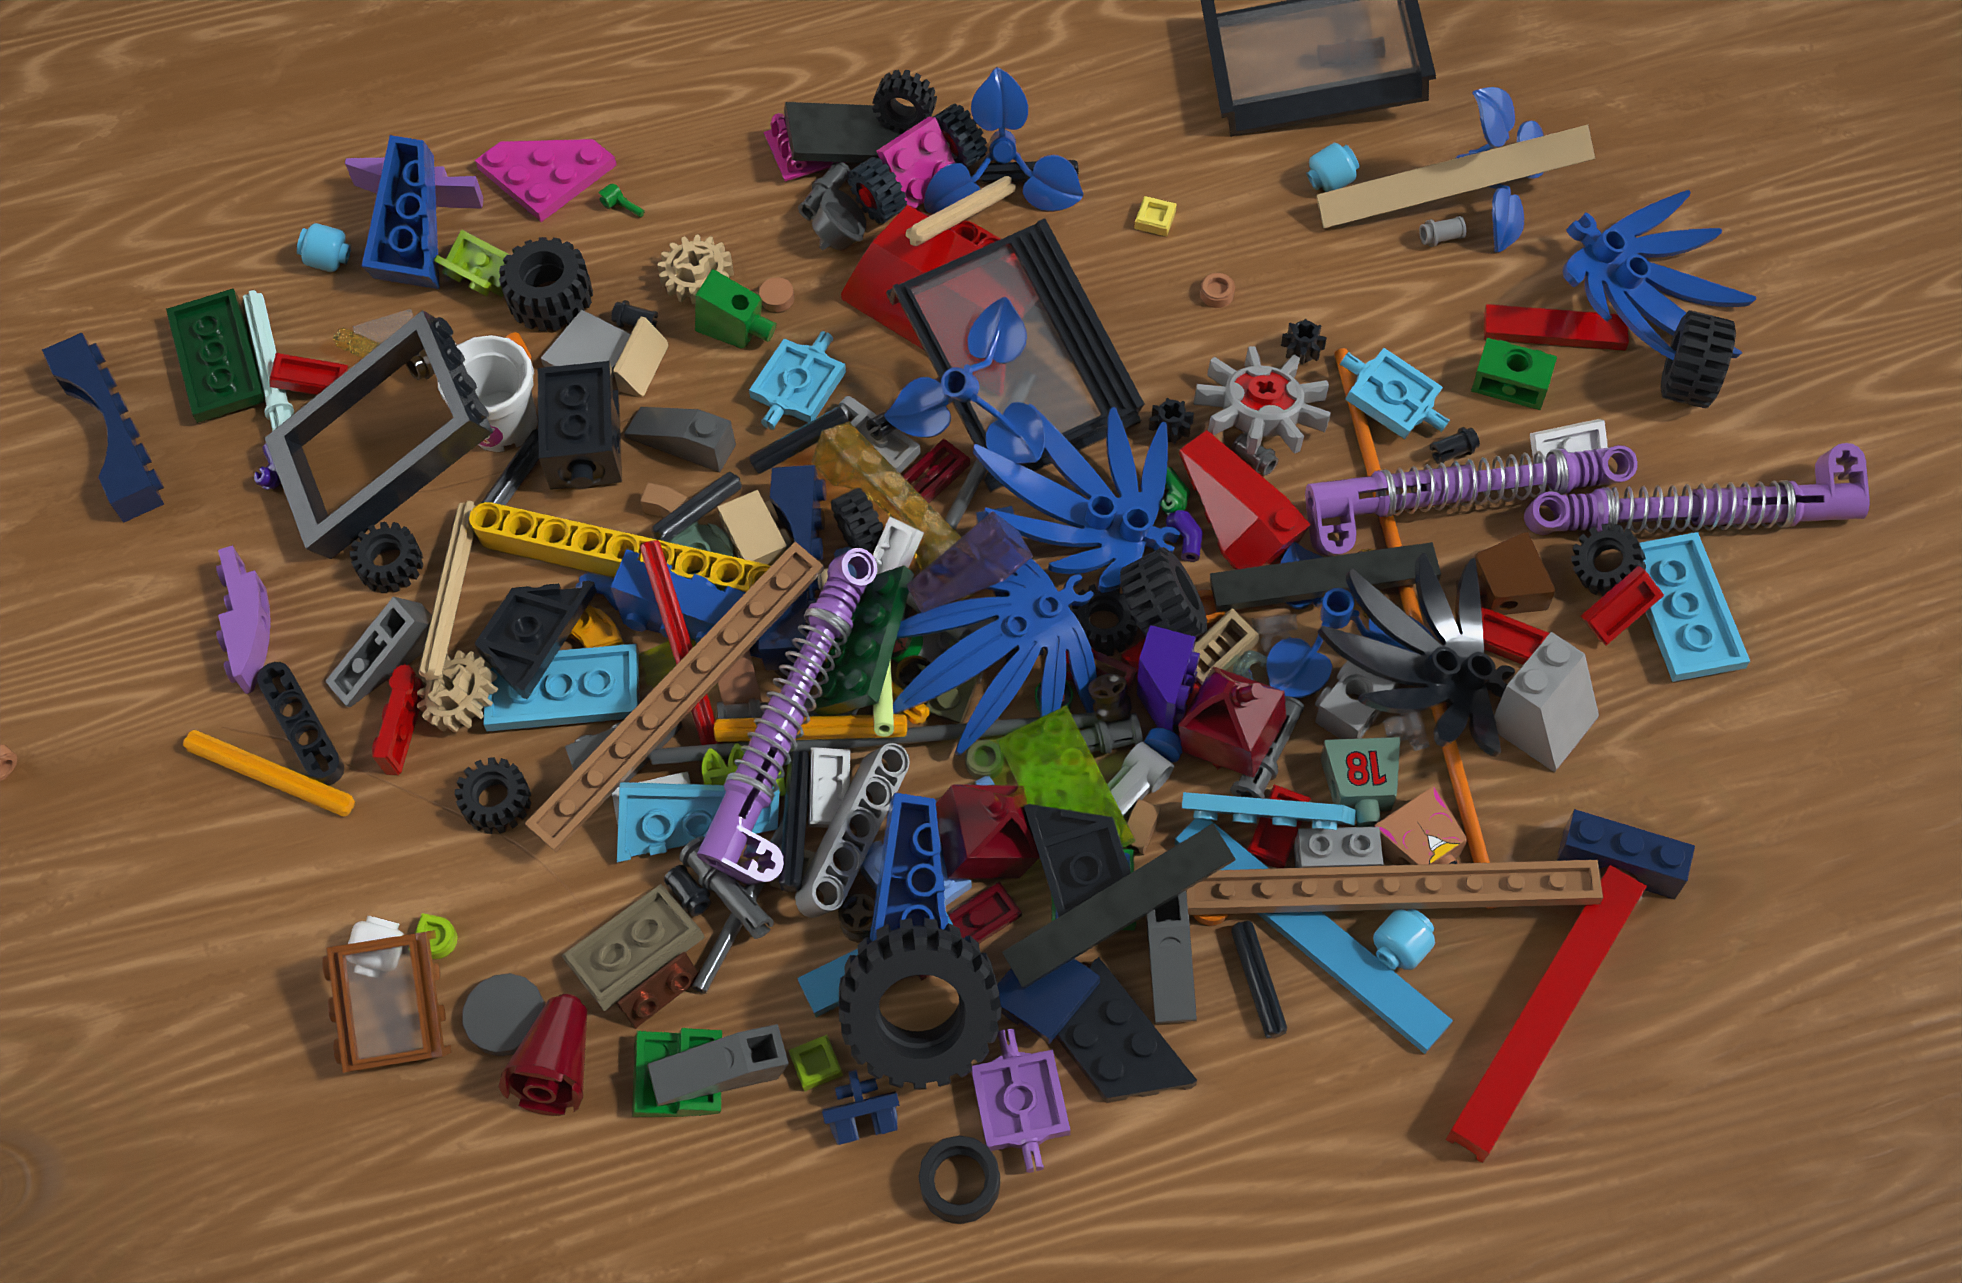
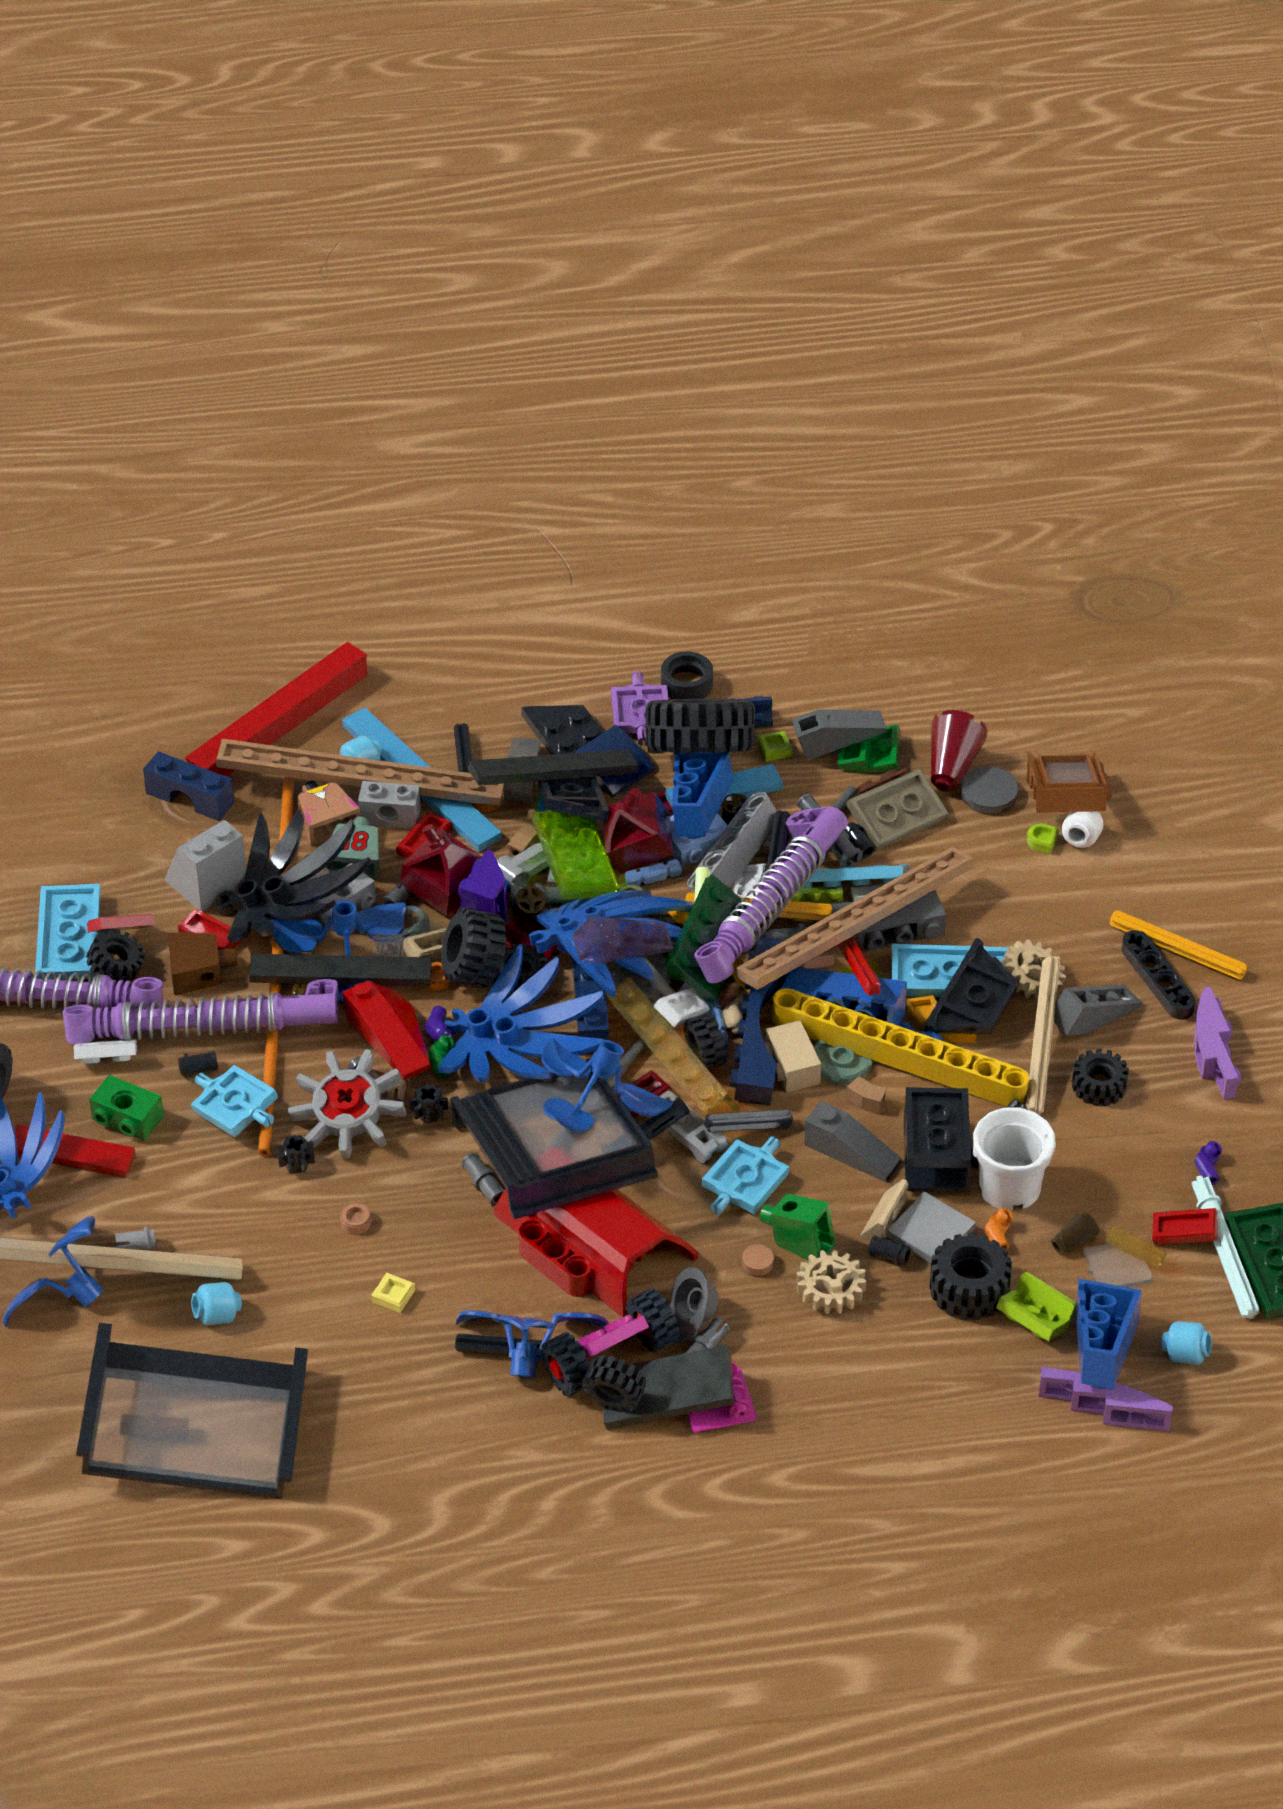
camera: 175 degrees left, 15 degrees down
(399, 721) = (1079, 963): red hinge -> none
(467, 429) = (1179, 1165): black window -> none
(484, 777) = (1002, 920): black tyre -> none
(545, 172) = (977, 1407): dark pink plate -> none
(612, 195) = (908, 1371): green hand -> none
(696, 507) = (839, 1080): black axle -> none
(960, 211) = (580, 1251): tan axle -> none
(1281, 811) = (409, 811): medium azure wing -> none

